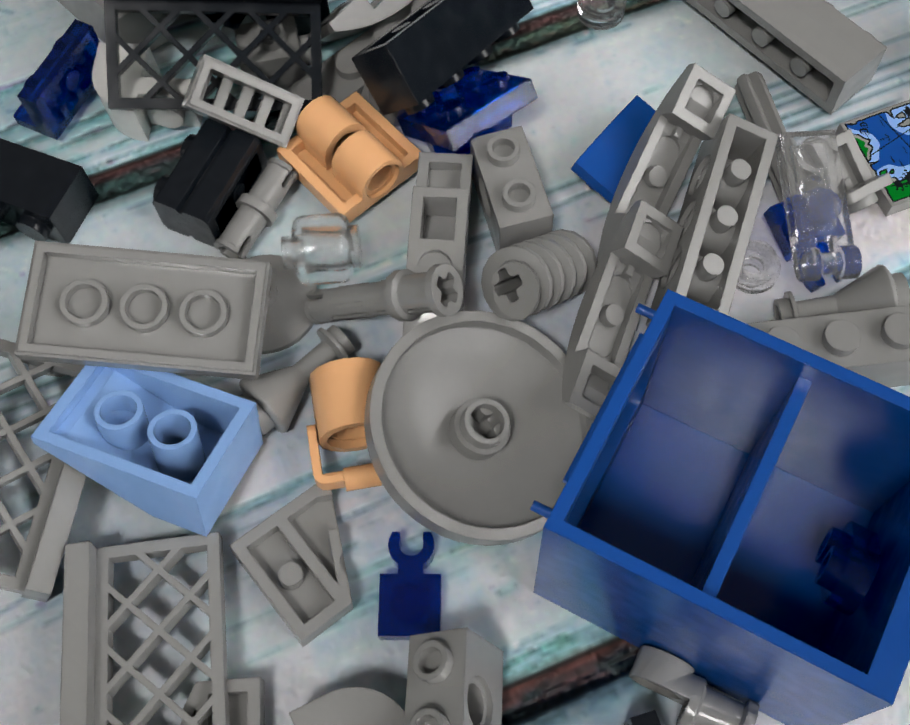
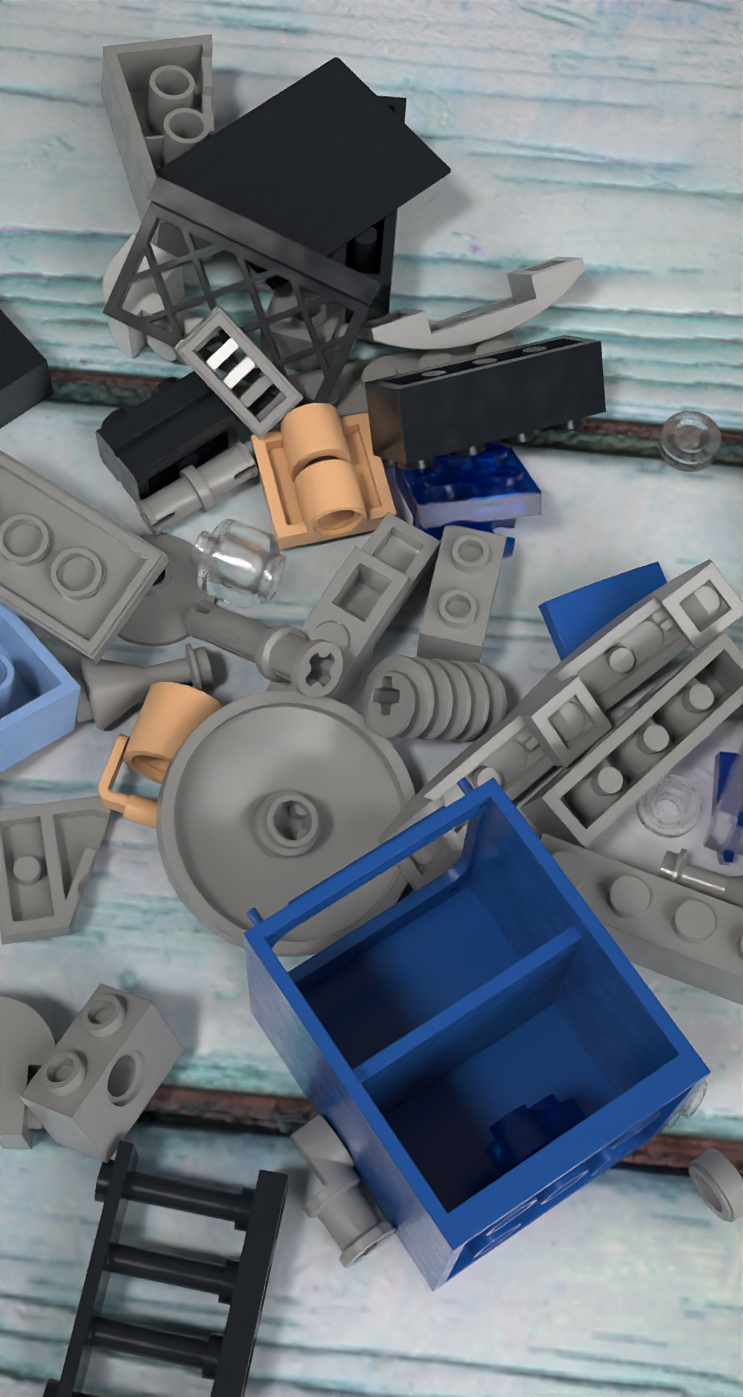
camera: 20 degrees right, 0 degrees up
(60, 83) = (74, 259): clear blue bracket -> none
(411, 599) = (130, 953): clear blue plate -> none

